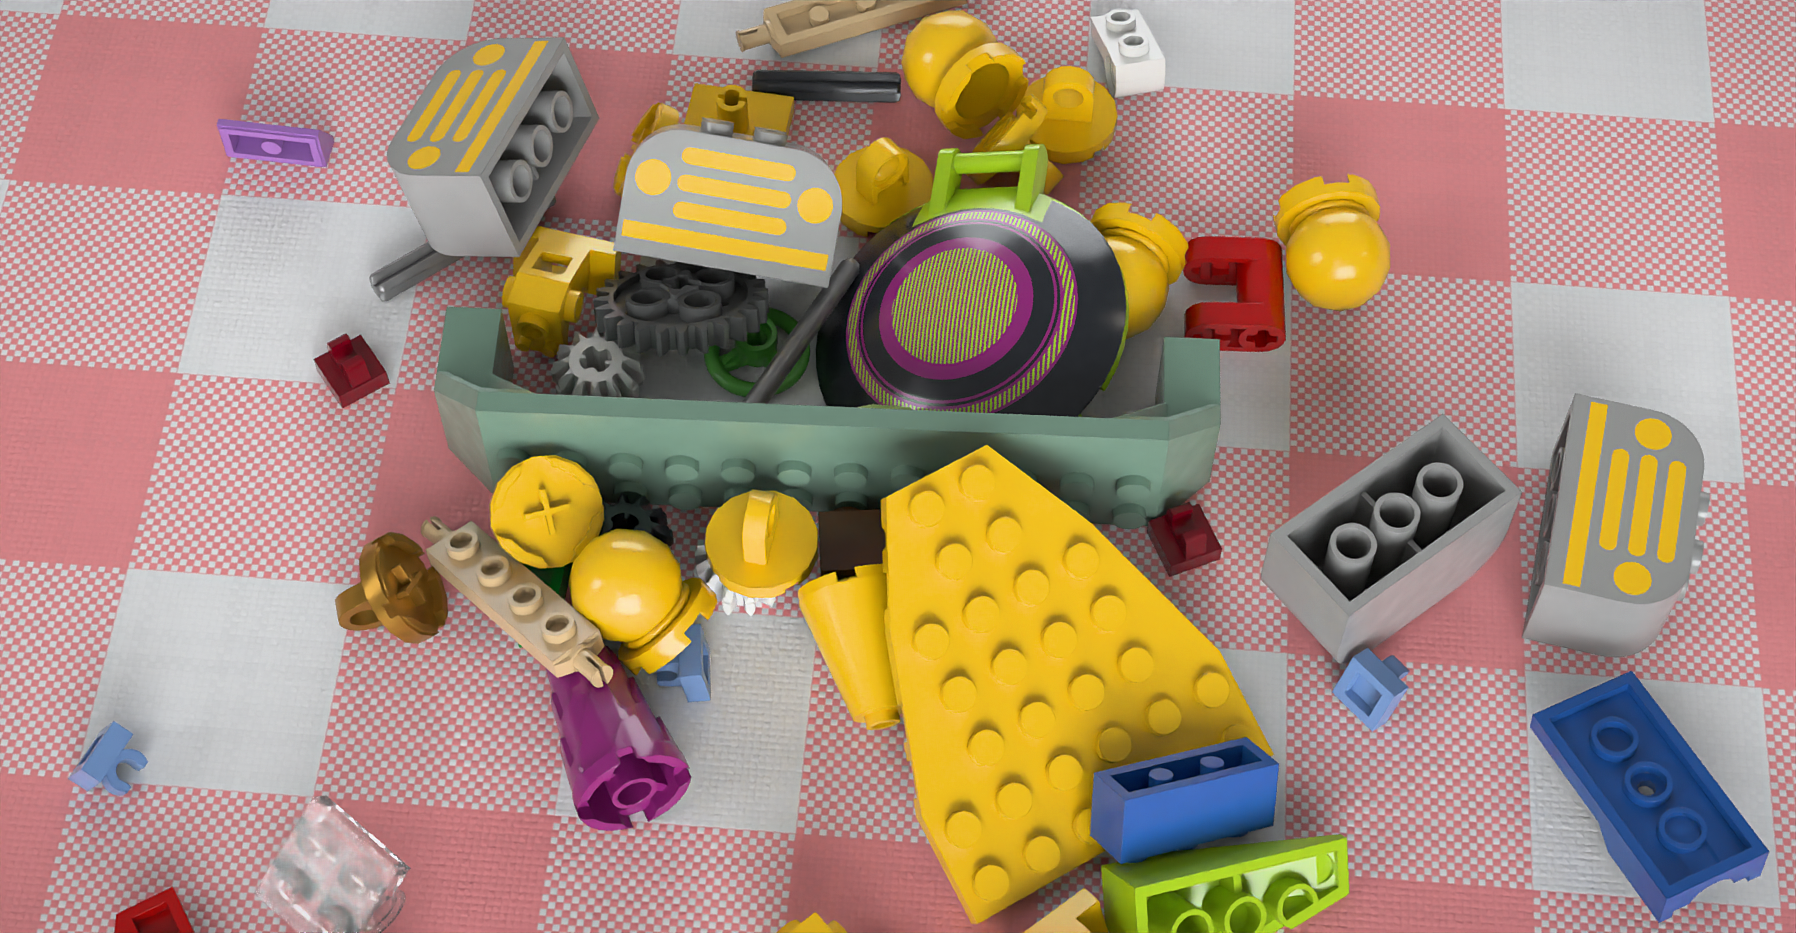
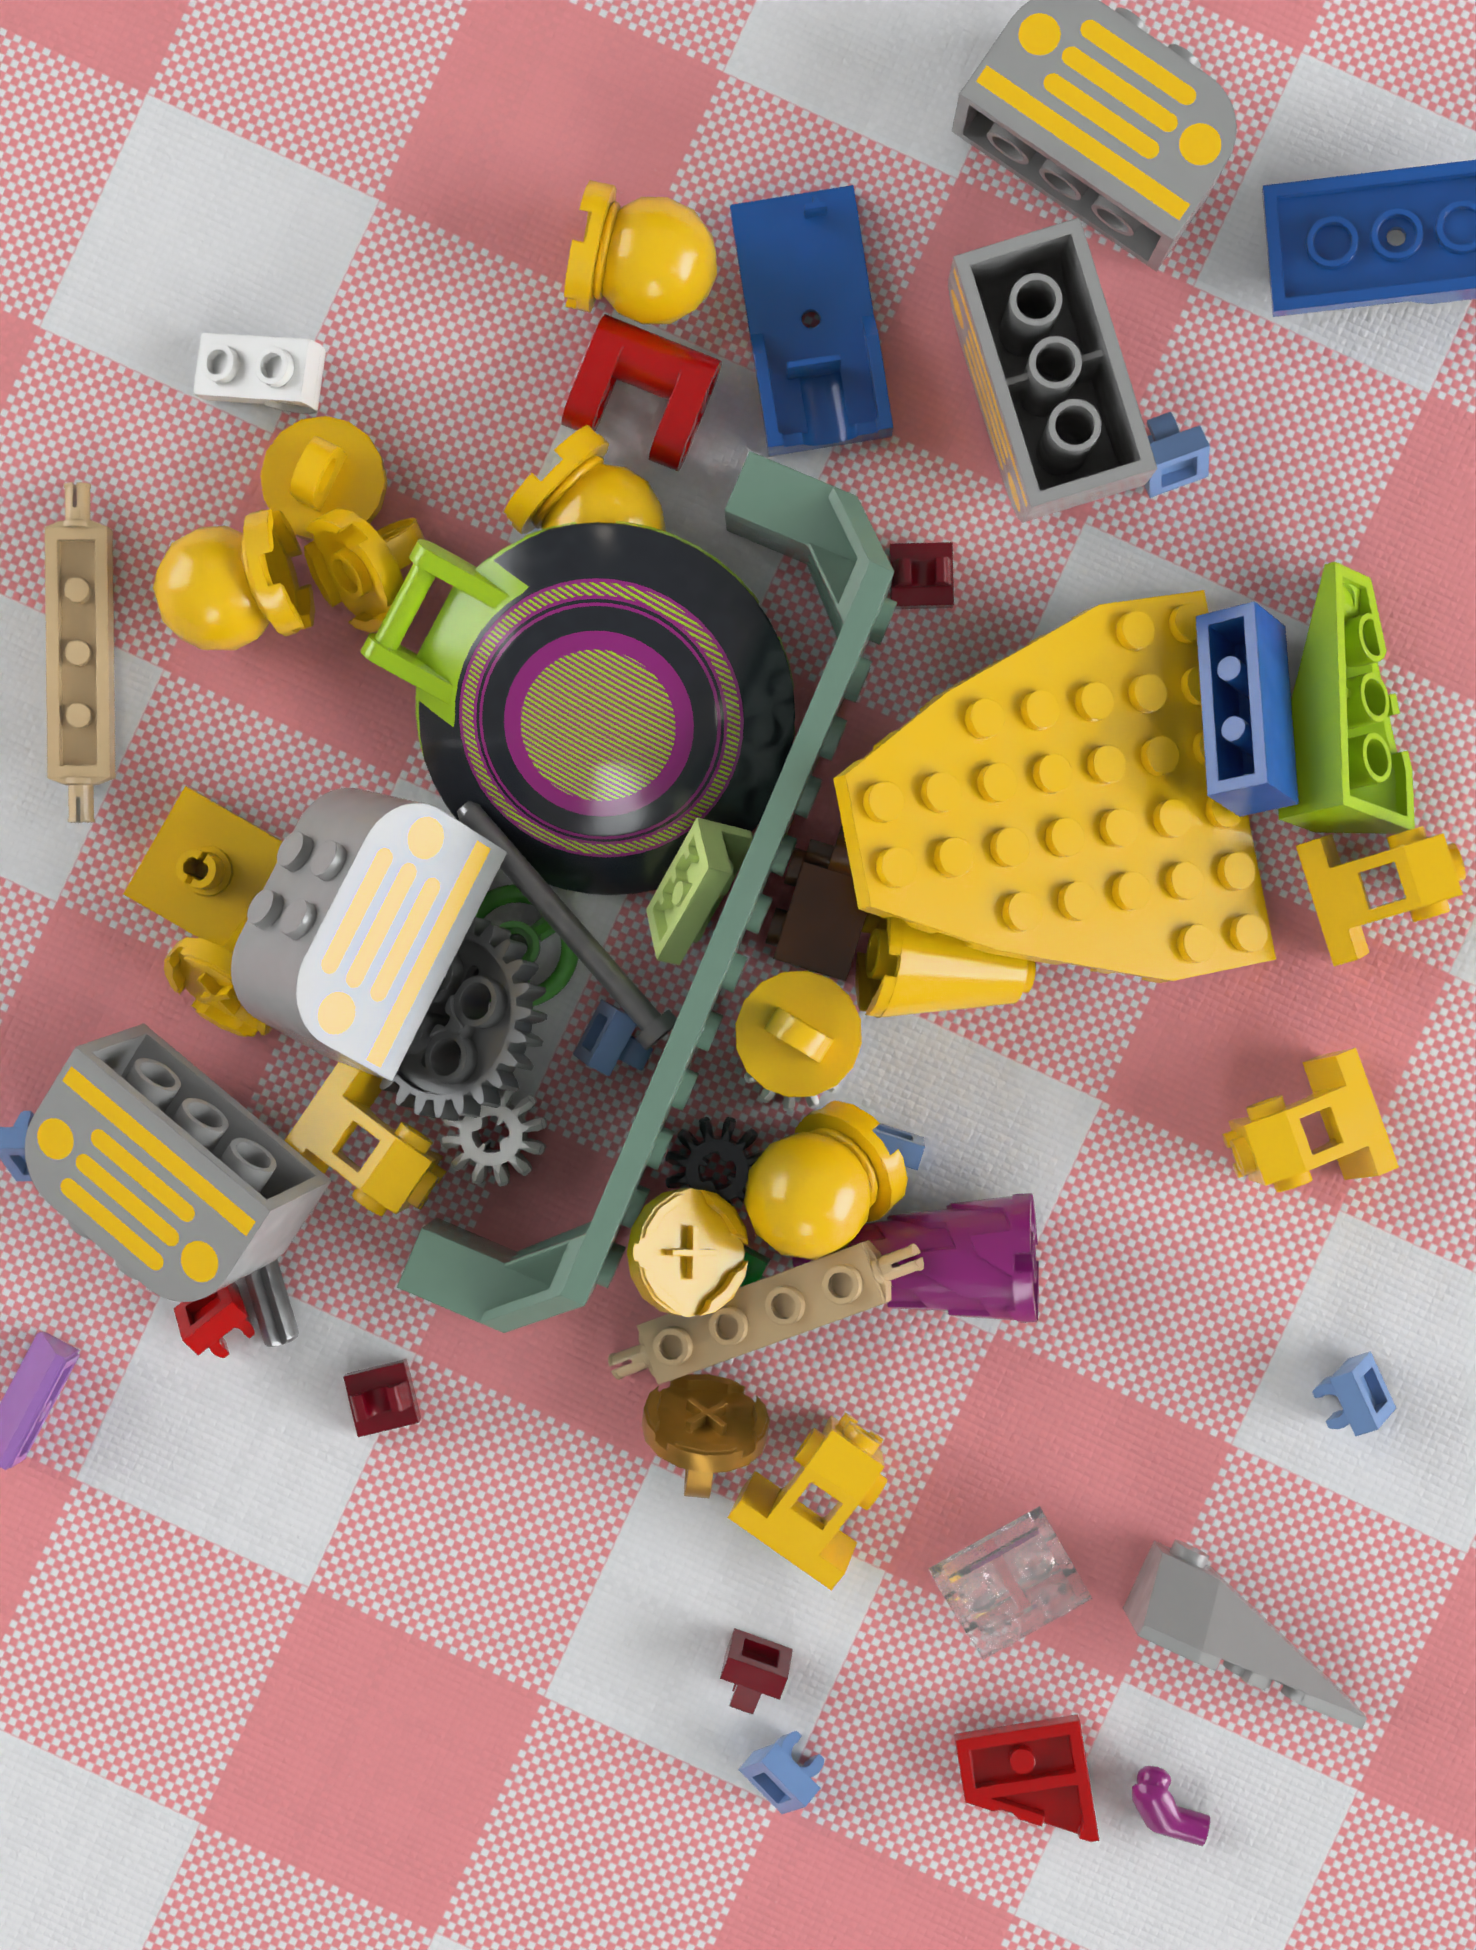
camera: 70 degrees left, 30 degrees up
(195, 705) = (755, 1669): none -> dark red tile
(381, 231) = (209, 1319): none -> red tile
(396, 707) = (842, 1463): none -> yellow tile
(829, 85) = (178, 740): black axle -> none
(881, 185) = (350, 729): yellow tile -> none
(1306, 421) = (825, 380): none -> blue piece

